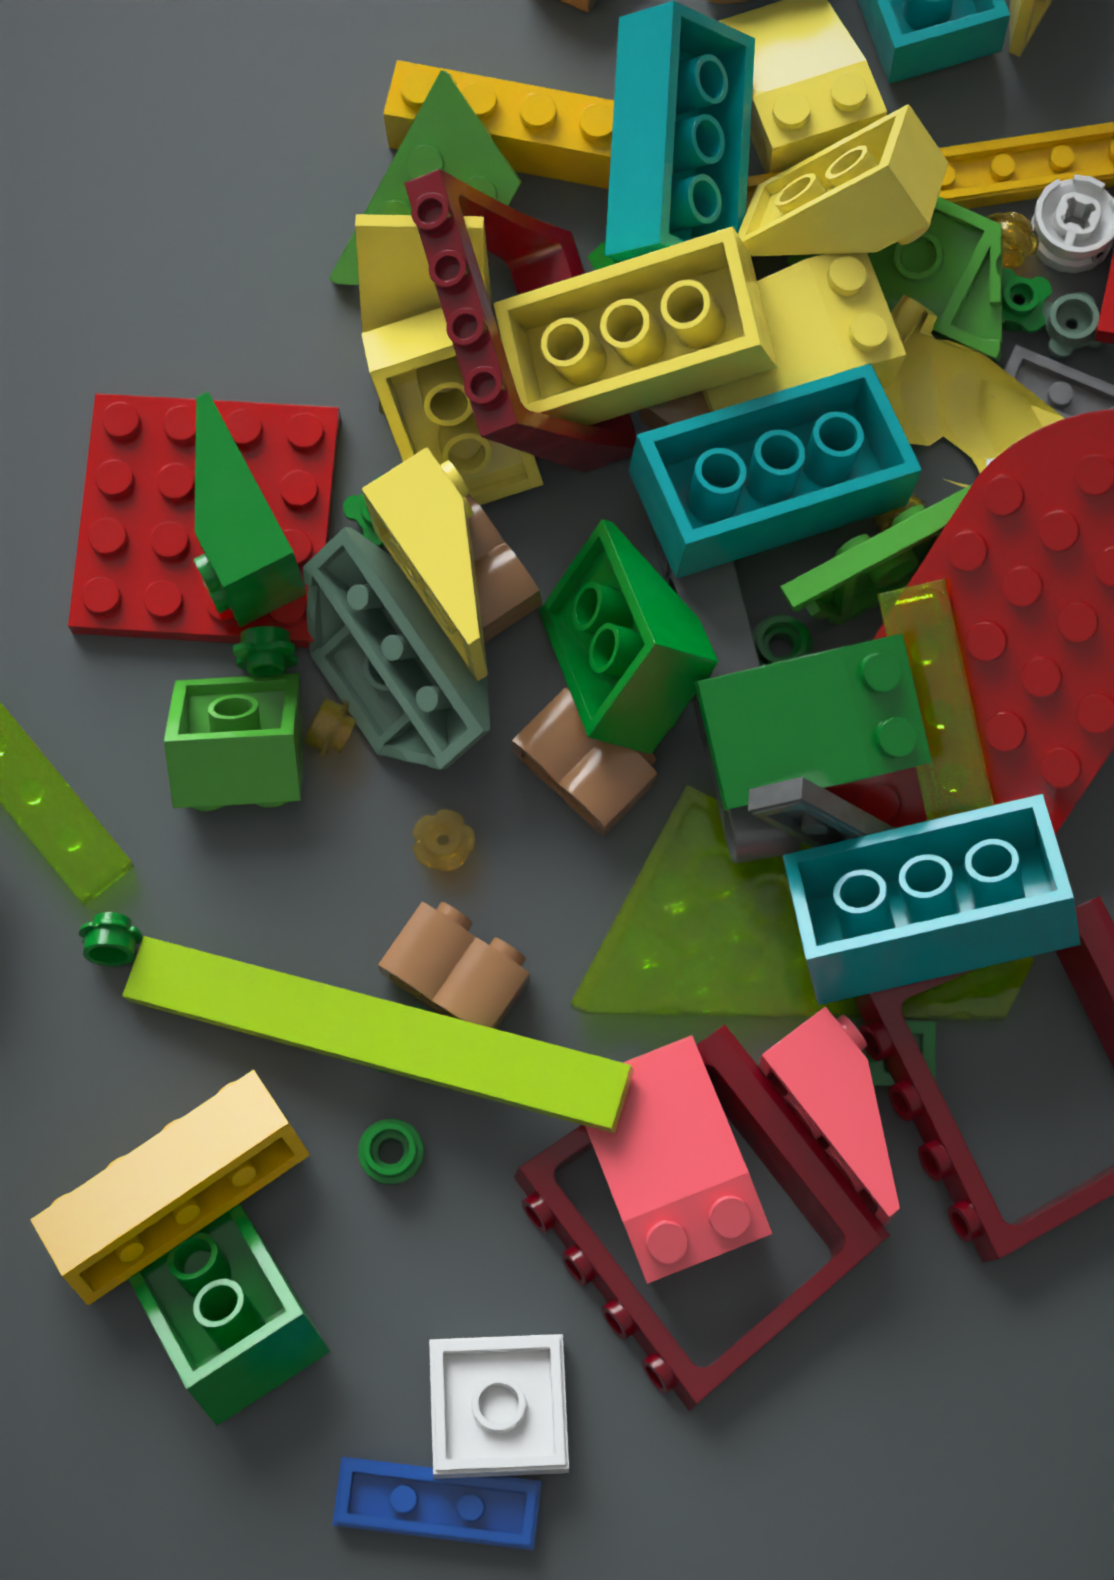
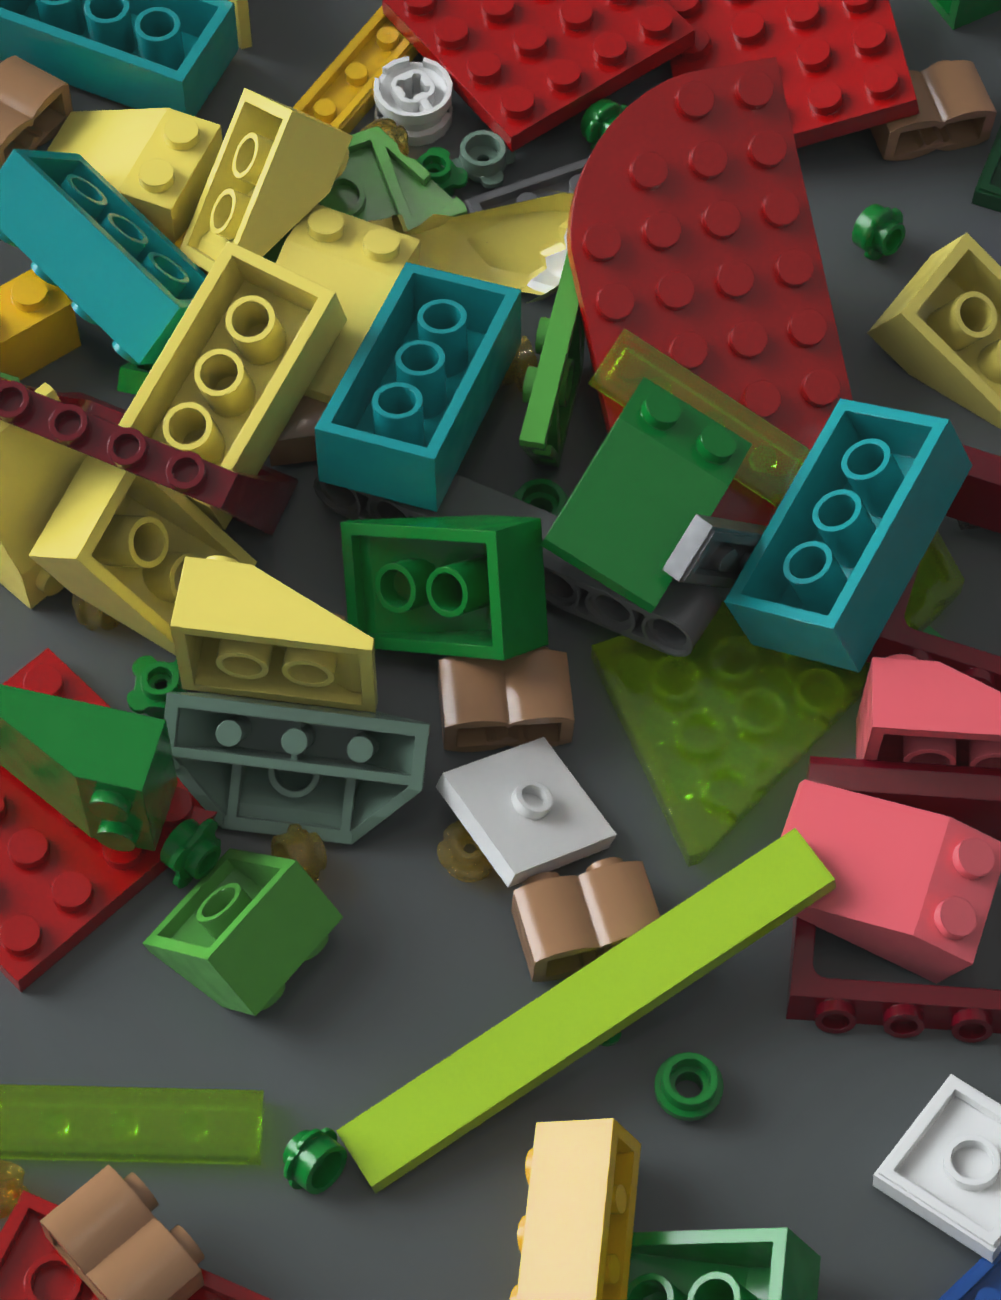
camera: 55 degrees left, 15 degrees down
(503, 854) = (525, 811): none -> white plate

